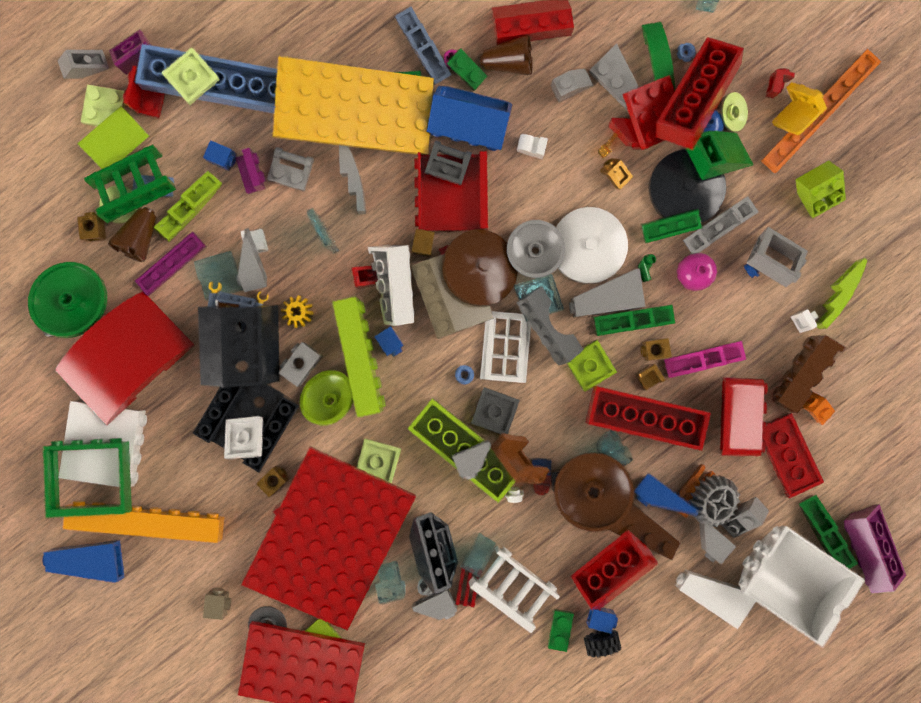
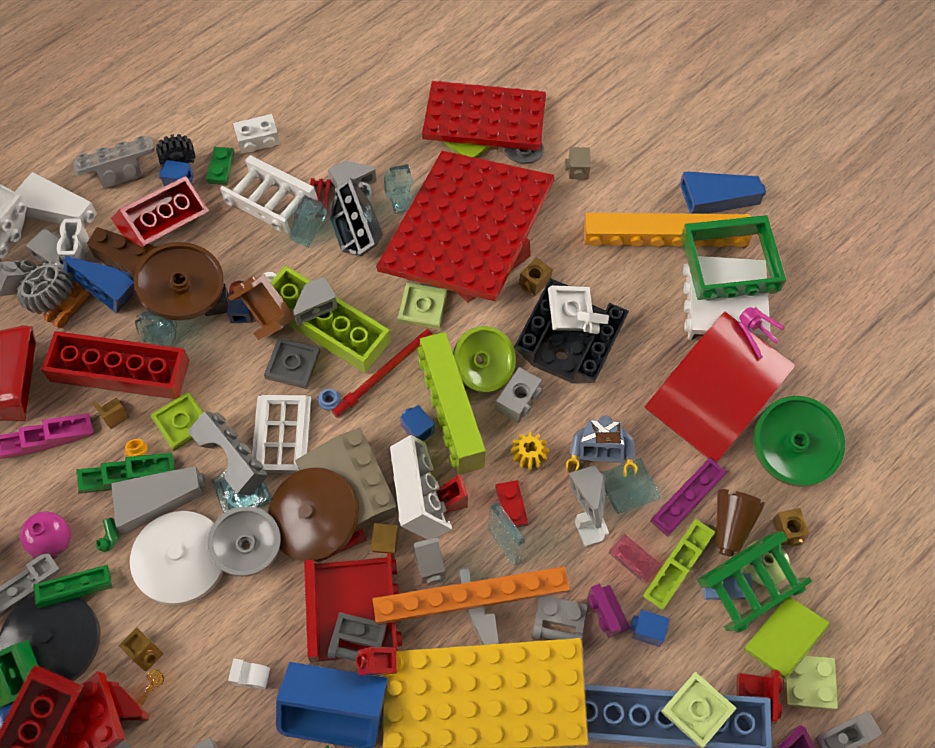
camera: 175 degrees right, 25 degrees down
(81, 412) = (751, 319): none -> dark pink plant
(223, 213) = (634, 558): none -> clear pink plate
(224, 347) = (605, 390): black slope -> none
(225, 423) = (592, 321): none -> white tile
(318, 268) = (511, 500): none -> red plate
(355, 187) = (470, 595): none -> orange plate
(387, 220) = (429, 561): none -> light grey slope
(433, 140) = (376, 661): none -> red bracket
(445, 373) = (351, 399): none -> red bar
(525, 662) = (256, 133): none -> white brick
(627, 344) = (135, 448): none -> light orange plate
(660, 641) = (115, 163): none -> light grey bracket
(664, 349) = (94, 435): pearl gold brick -> none
(693, 549) = (73, 239): none -> white brick

